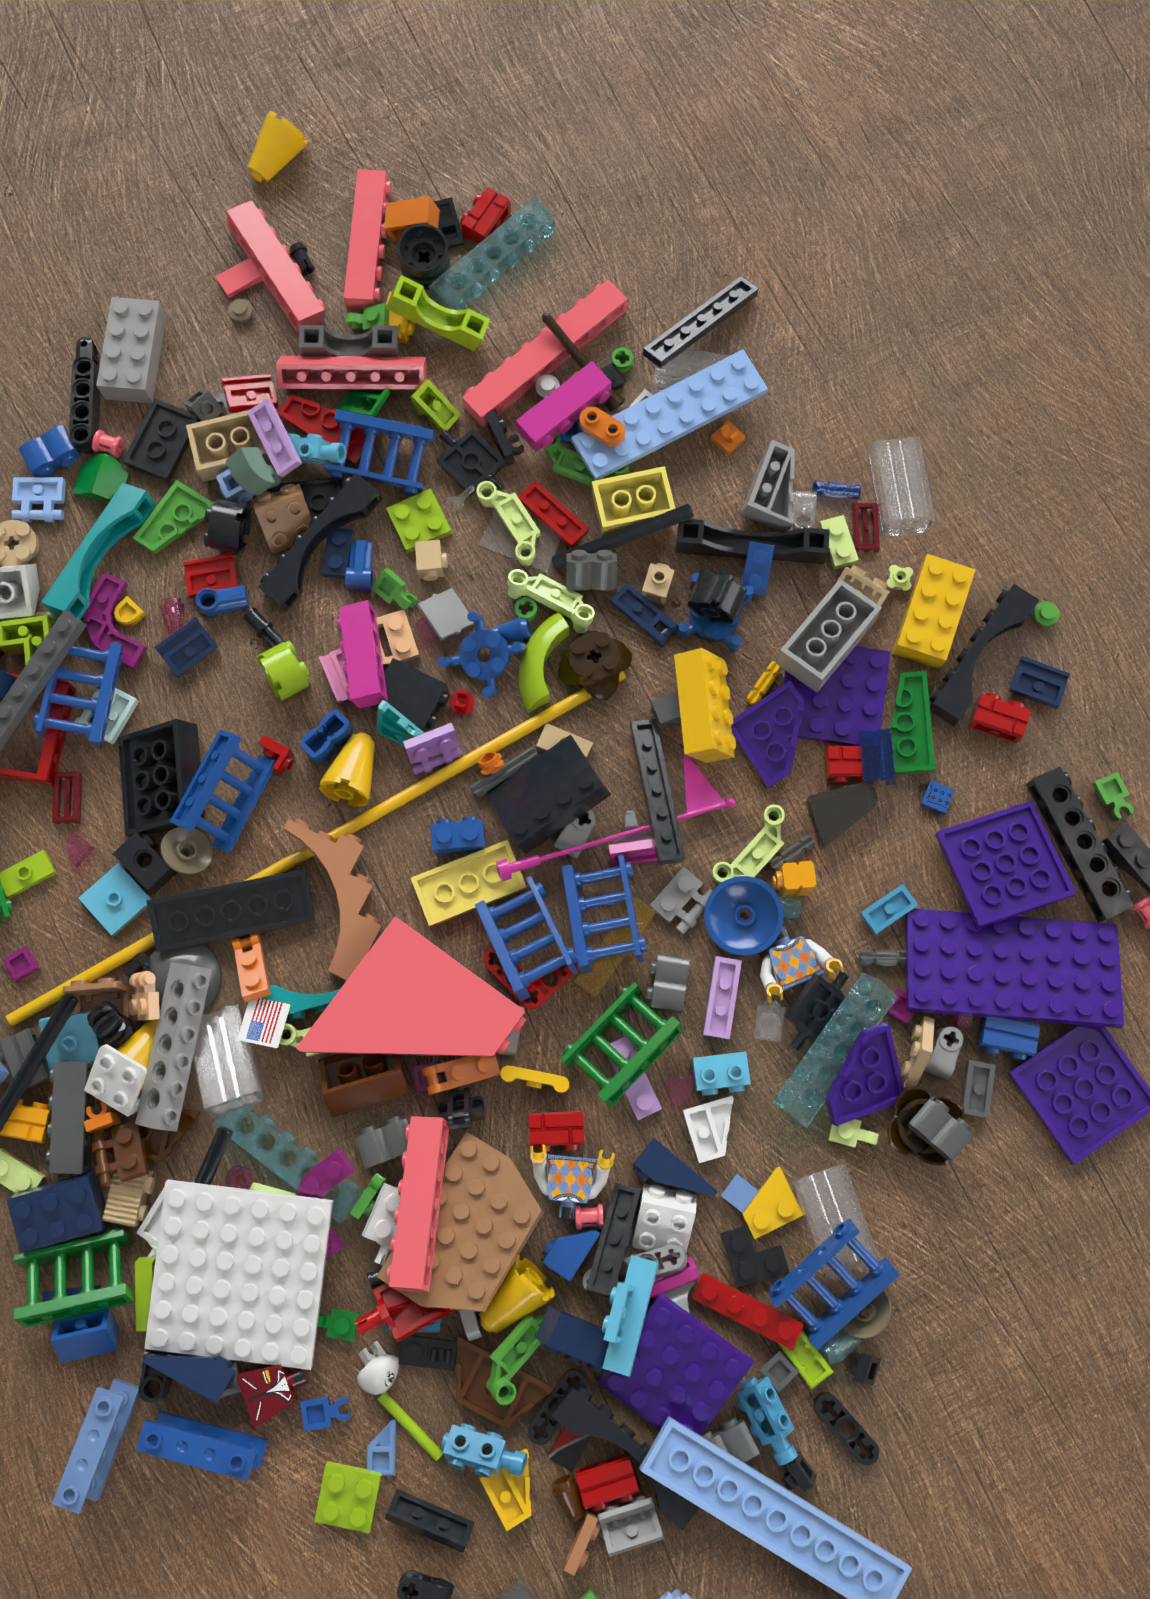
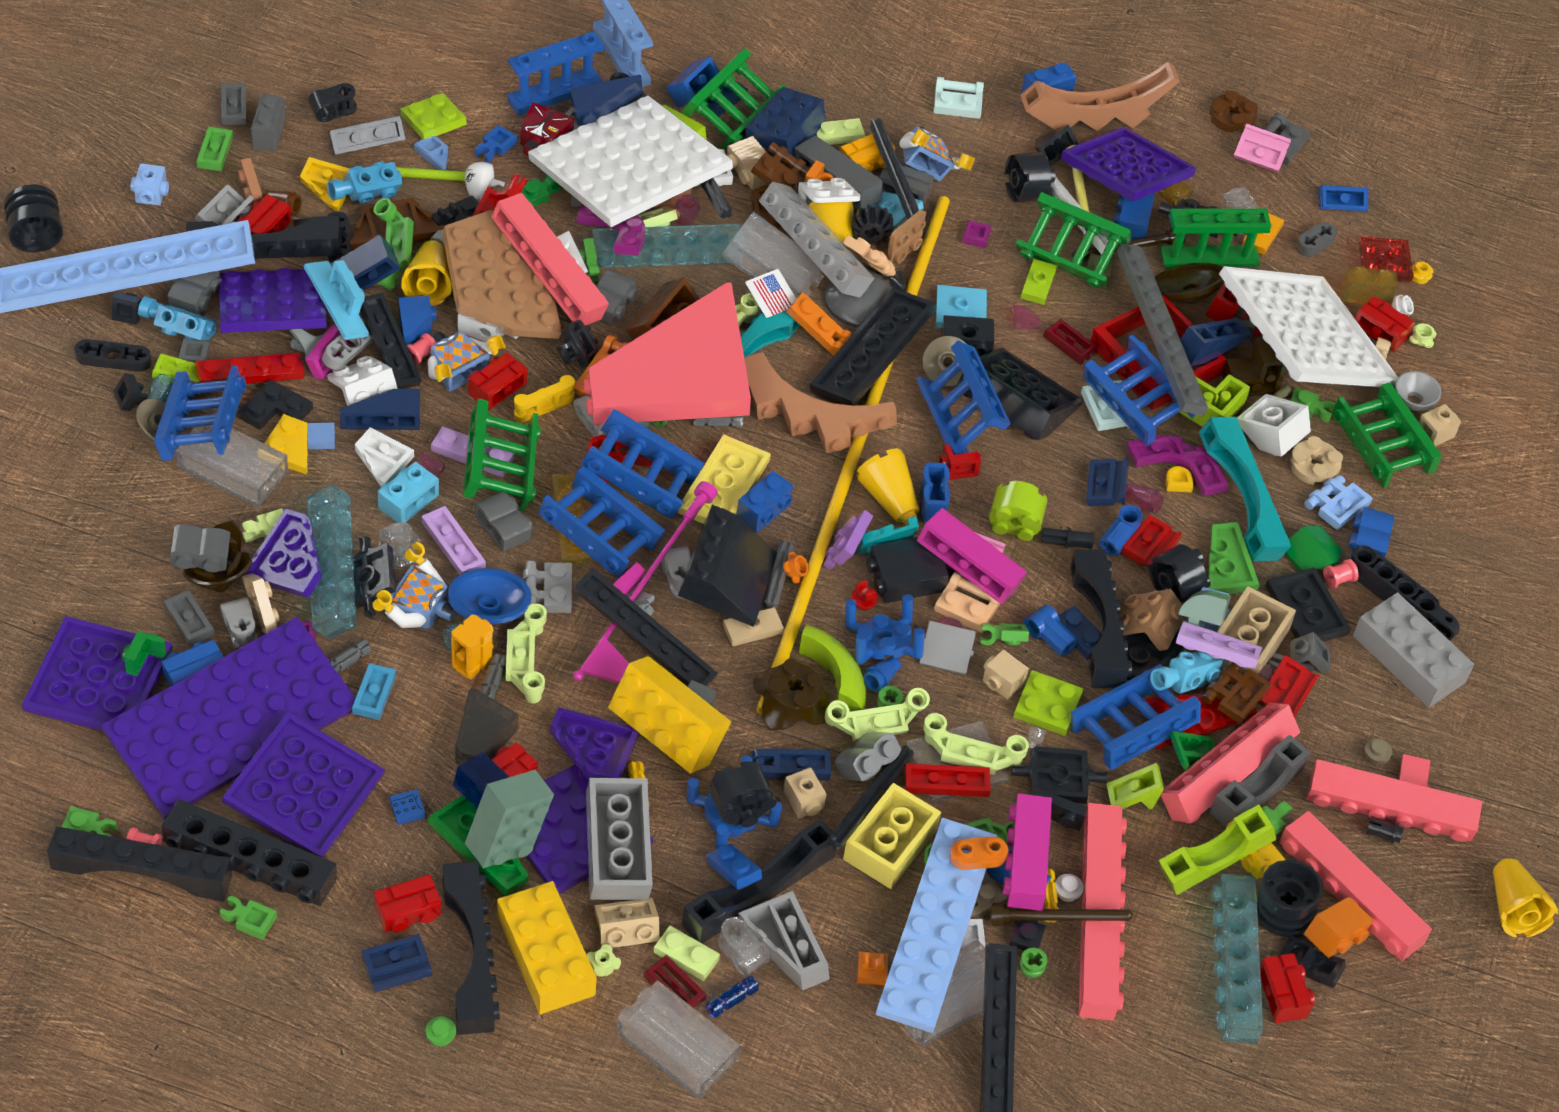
camera: 130 degrees right, 25 degrees down
(296, 403) = (1242, 698): none -> reddish brown plate
(901, 696) = (509, 818): none -> sand green brick
(1053, 1074) = (140, 648): none -> green bracket

